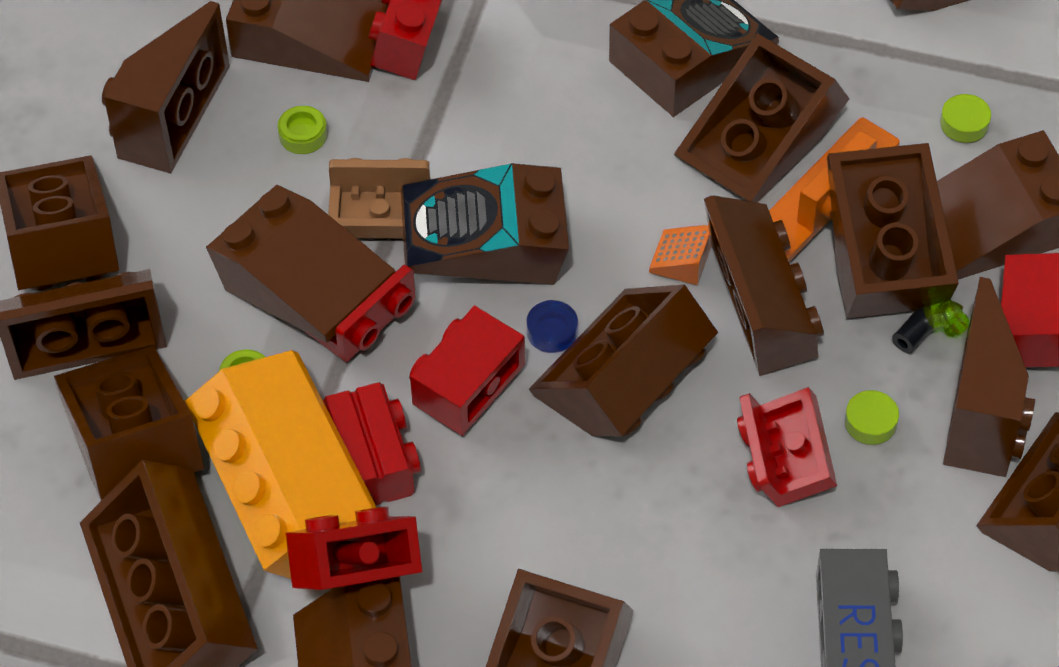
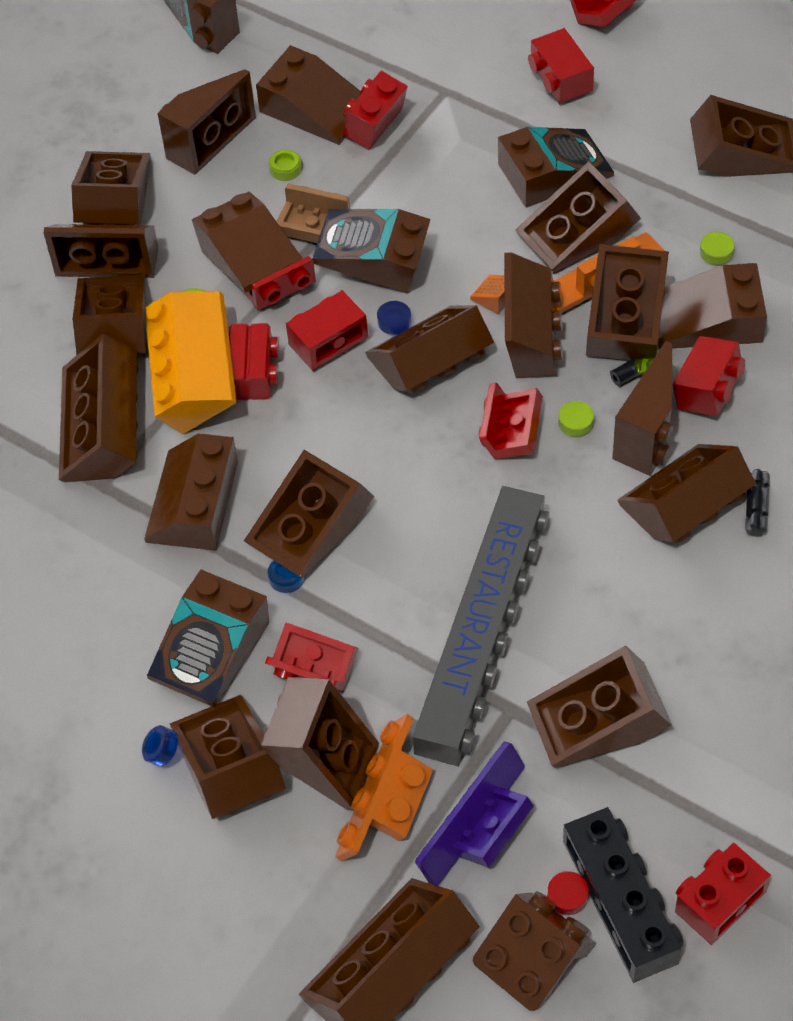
camera: 20 degrees right, 0 degrees up
(353, 552) = (207, 415): red brick -> none

